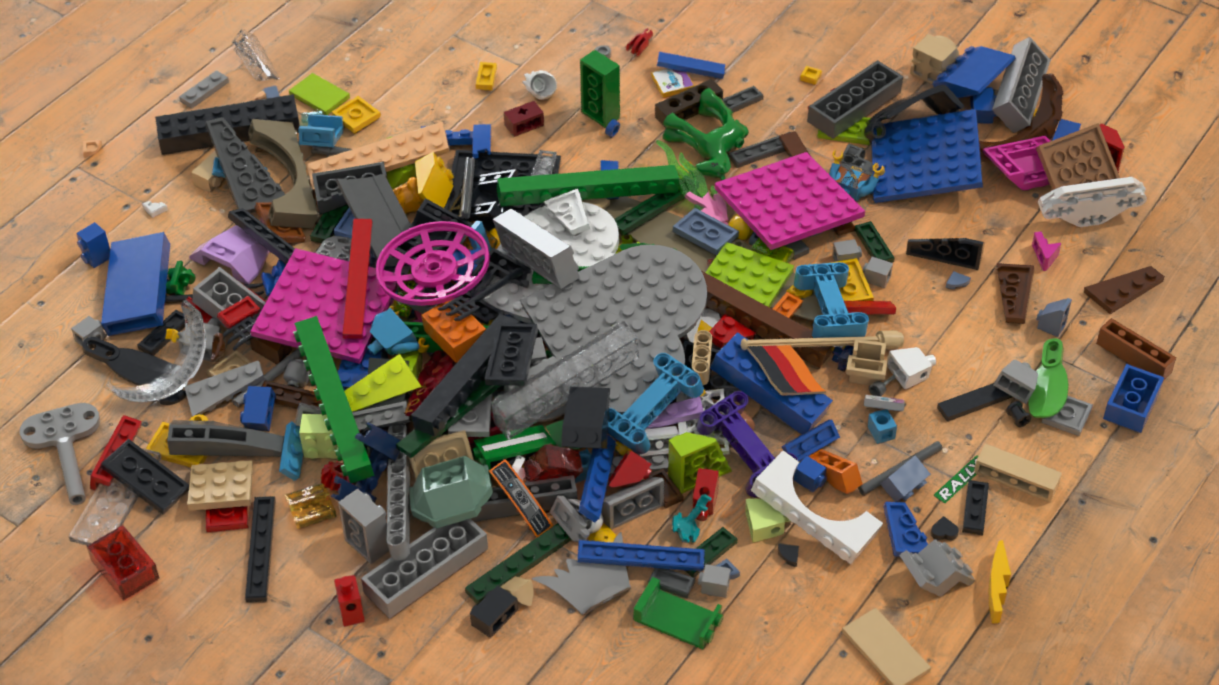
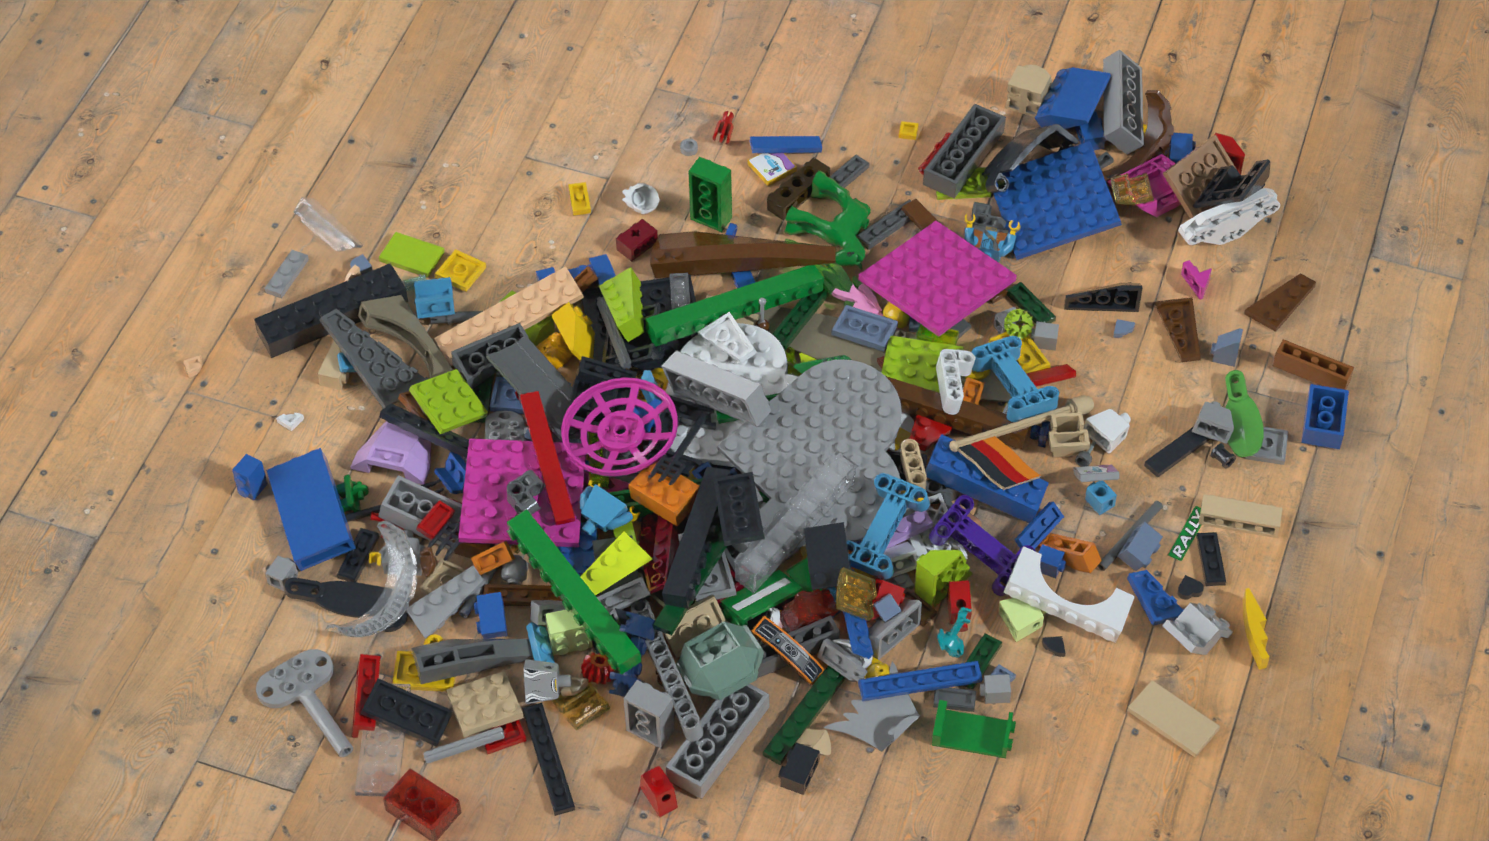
camera: 15 degrees left, 5 degrees up
(186, 517) = (463, 744): none -> light grey axle
(278, 357) = (493, 558): none -> orange plate
(279, 475) = (543, 681): none -> light grey torso
(293, 215) = (448, 401): none -> lime plate
(308, 487) = (577, 686): none -> tan tile
(324, 299) = (527, 486): none -> dark grey piece
(459, 142) = (585, 278): none -> dark orange tile
(485, 164) = (623, 299): none -> lime wedge
(594, 142) = (721, 253): none -> reddish brown wedge
(600, 458) = (855, 594): none -> clear yellow slope
(610, 208) = (762, 323): none -> hinge
(628, 478) = (887, 607): none -> sand blue tile
(772, 276) = (949, 368): none -> white beam
(846, 258) = (1012, 329): none -> lime gear
(987, 133) = (1105, 160): none -> dark grey piece
(1003, 159) = (1132, 190): none -> clear yellow slope
(1103, 168) = (1232, 187): none -> black slope

